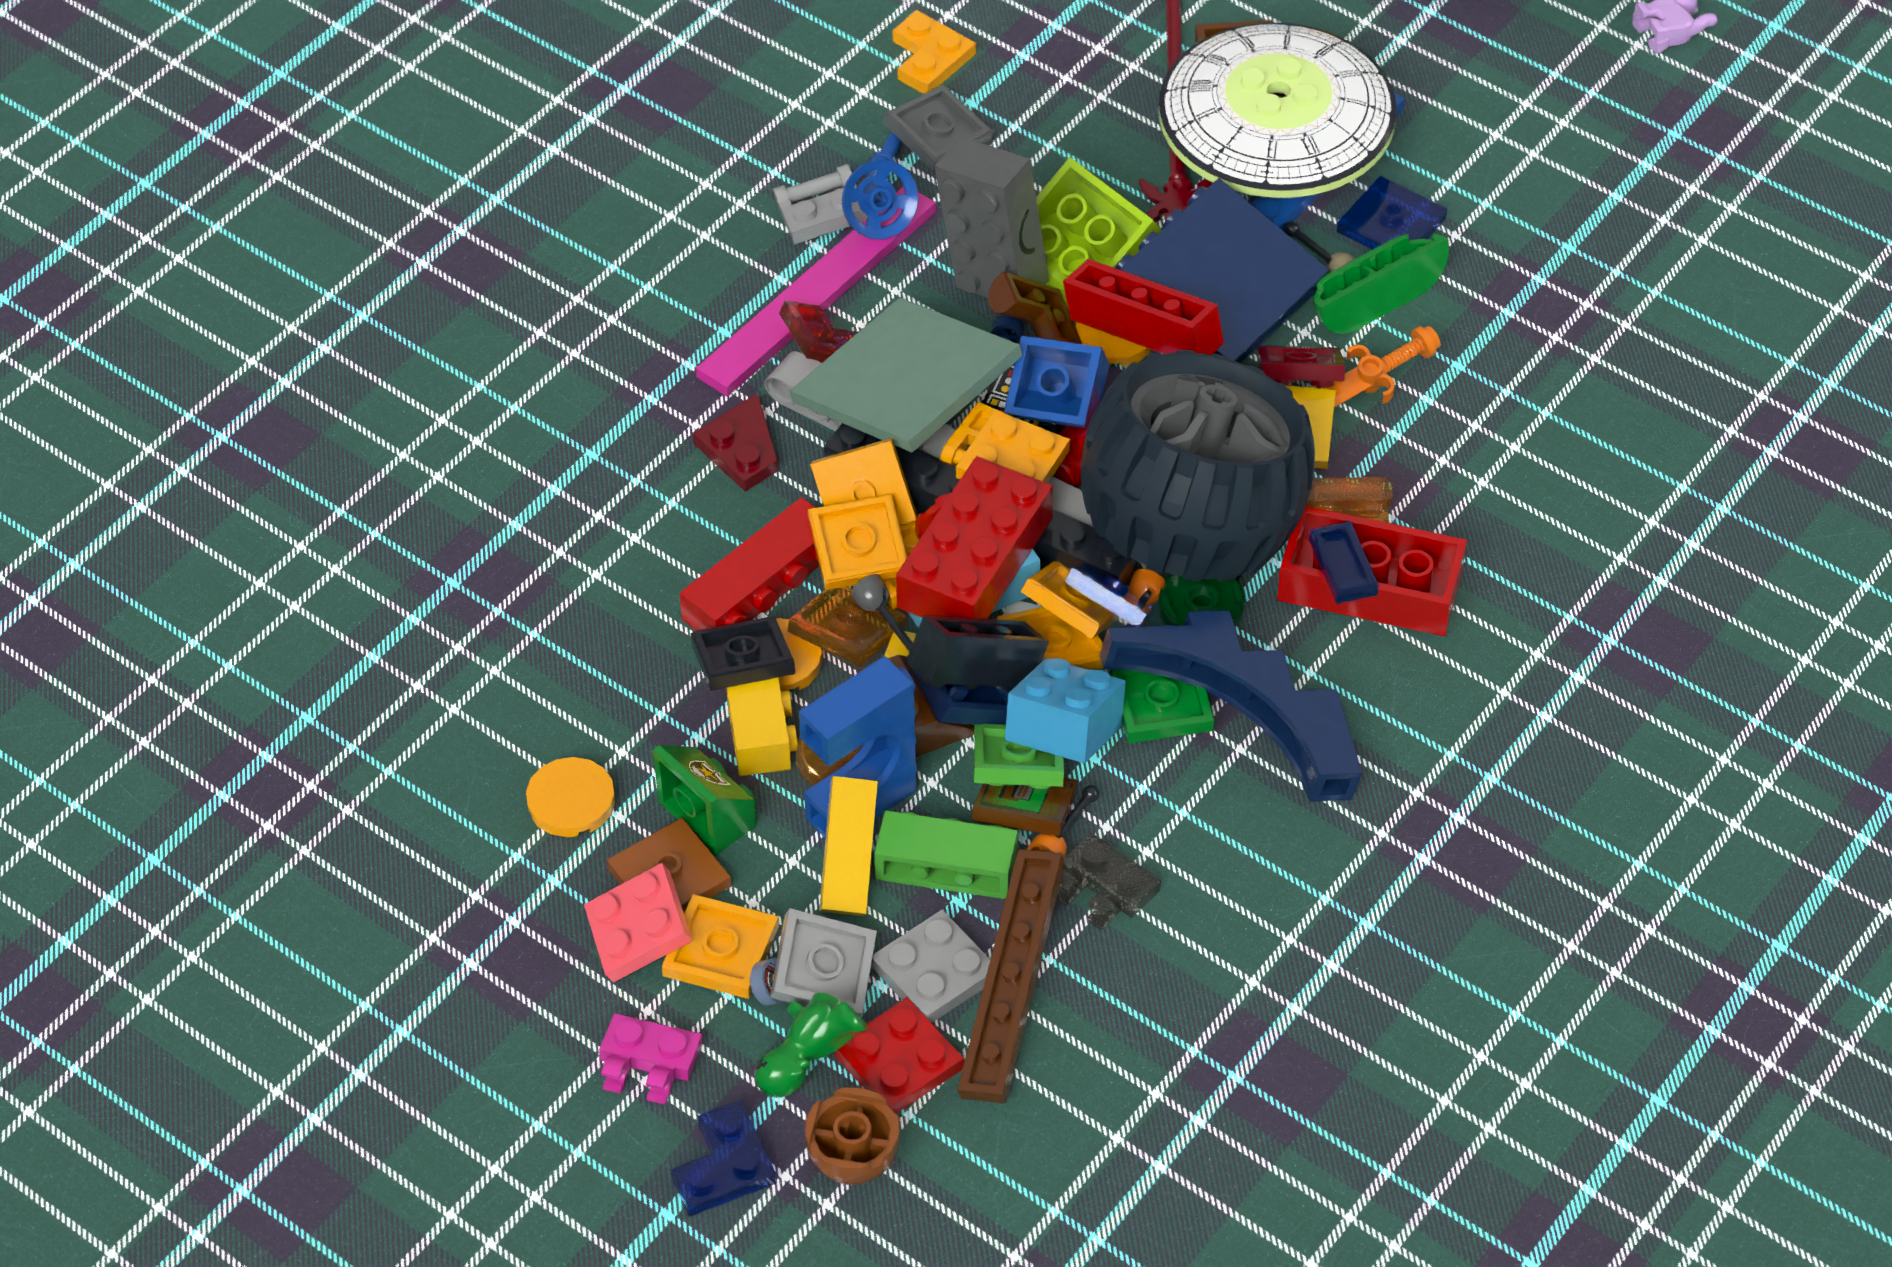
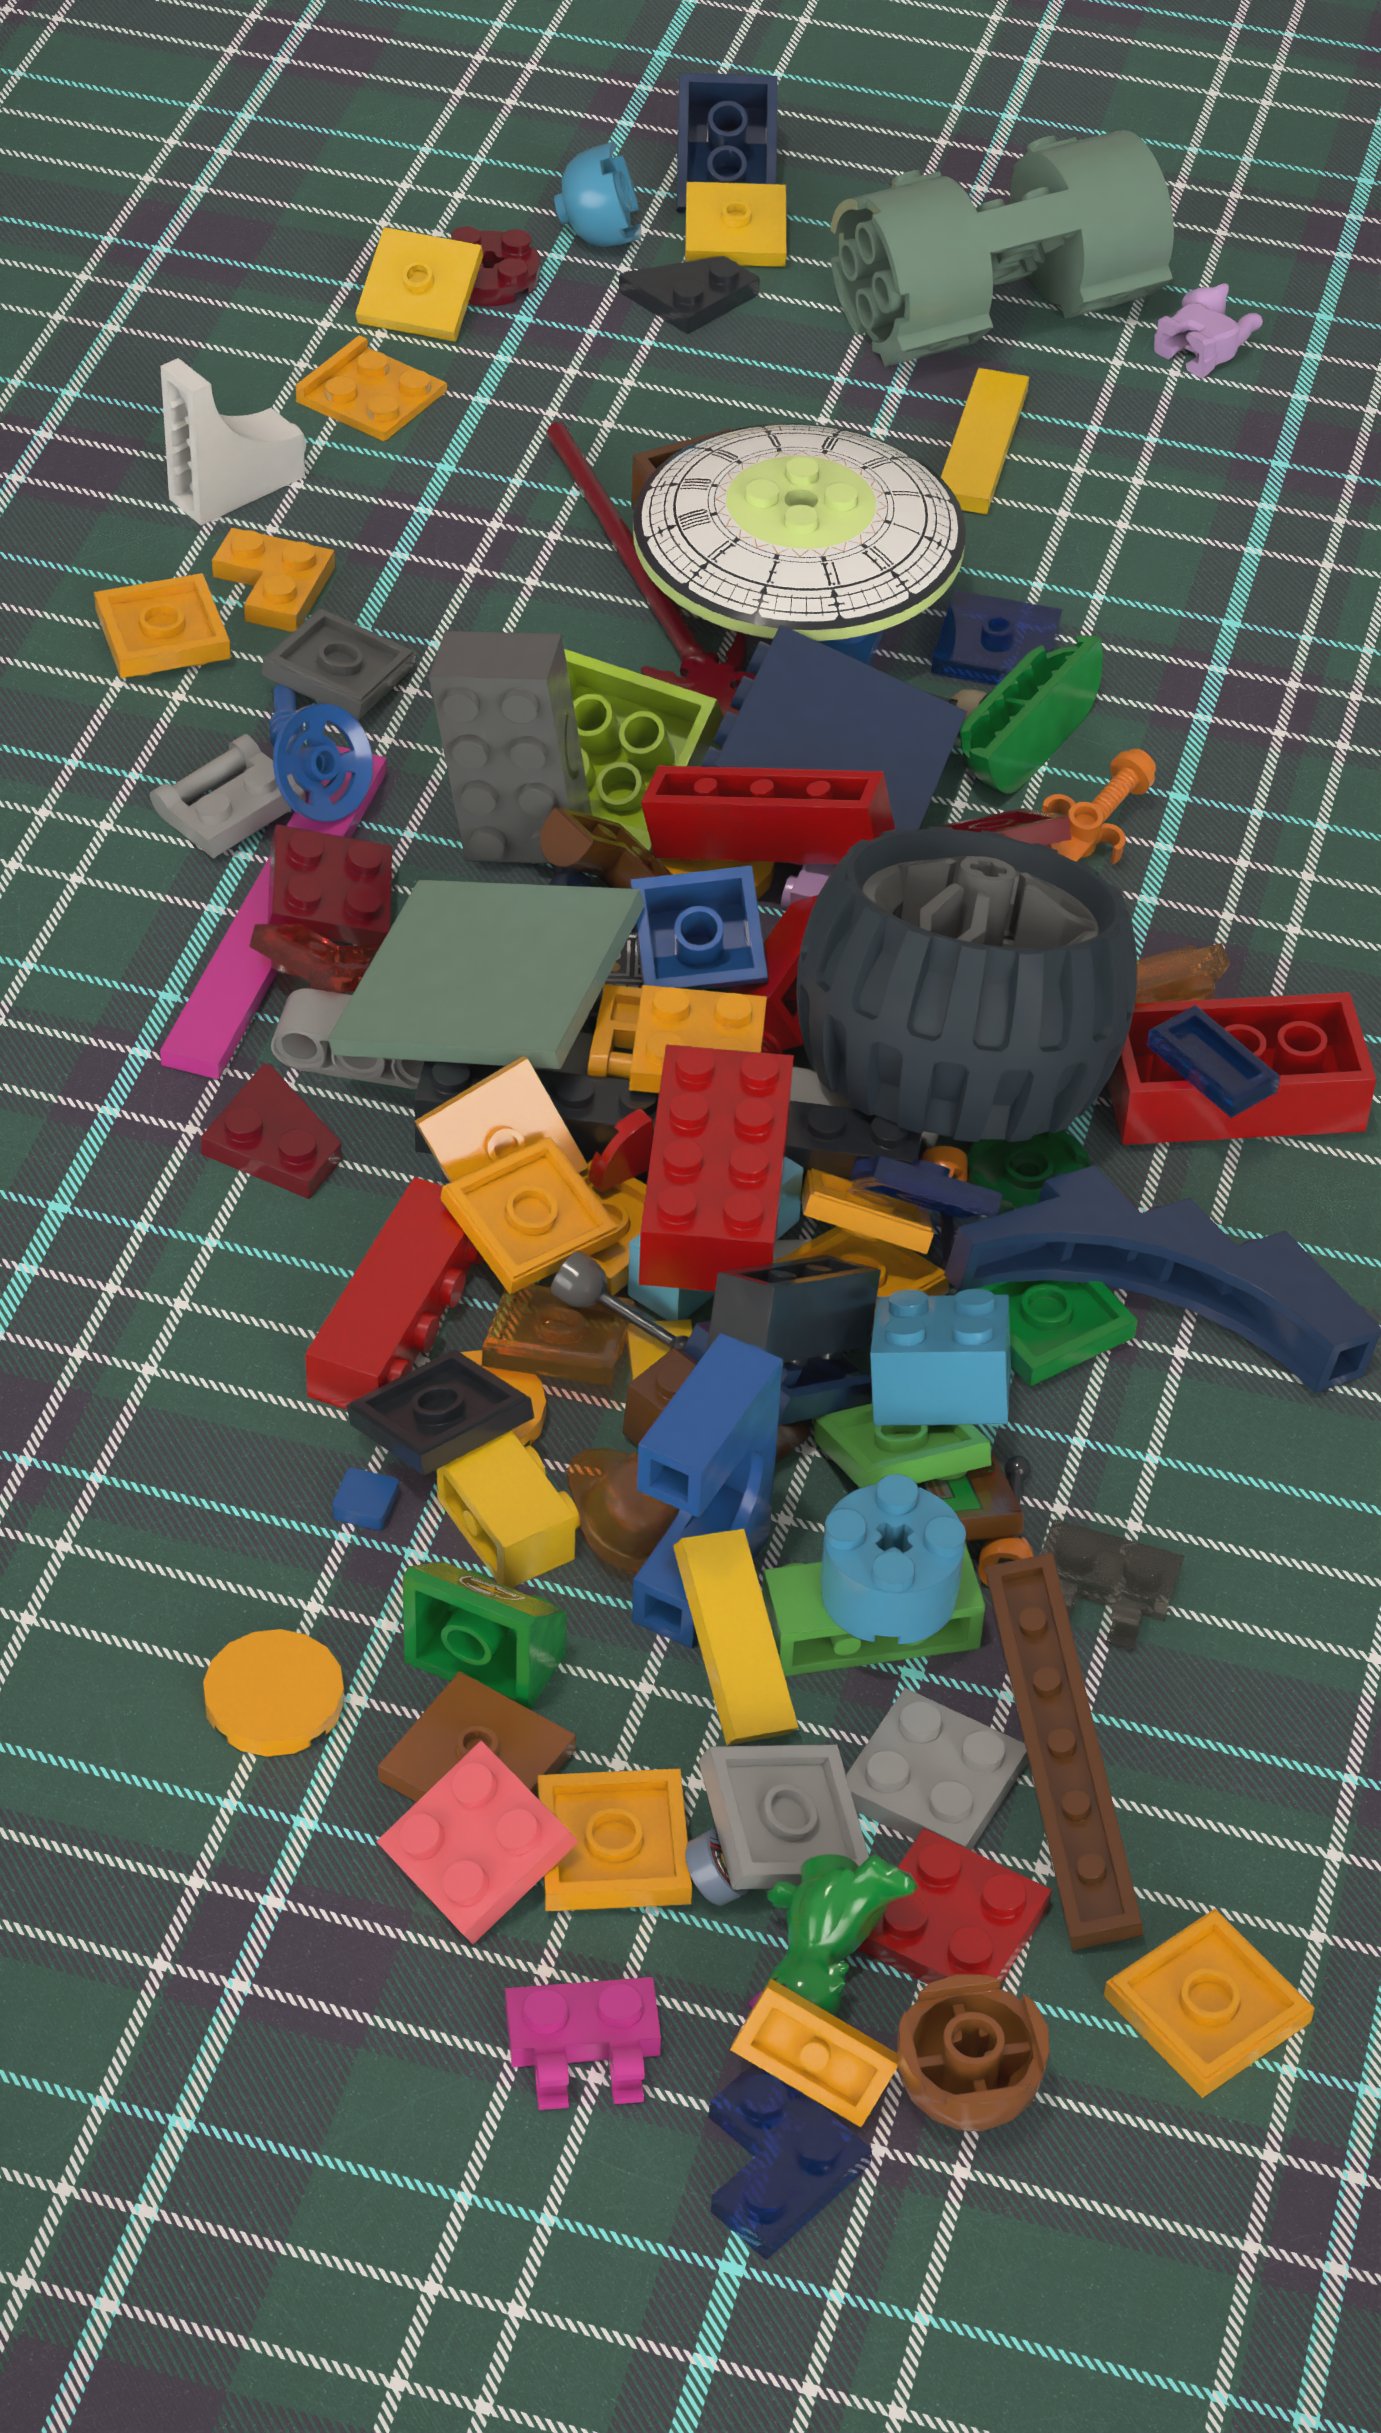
camera: 25 degrees left, 5 degrees down
(682, 694) = (365, 1499): none -> blue piece
(765, 1107) = (815, 2053): none -> light orange plate
(837, 70) = (162, 625): none -> light orange plate
(852, 283) = (330, 885): none -> dark red plate
(954, 828) = (892, 1561): none -> dark azure brick
(1025, 1155) = (1208, 2002): none -> light orange tile
(1465, 66) = (984, 438): none -> yellow tile

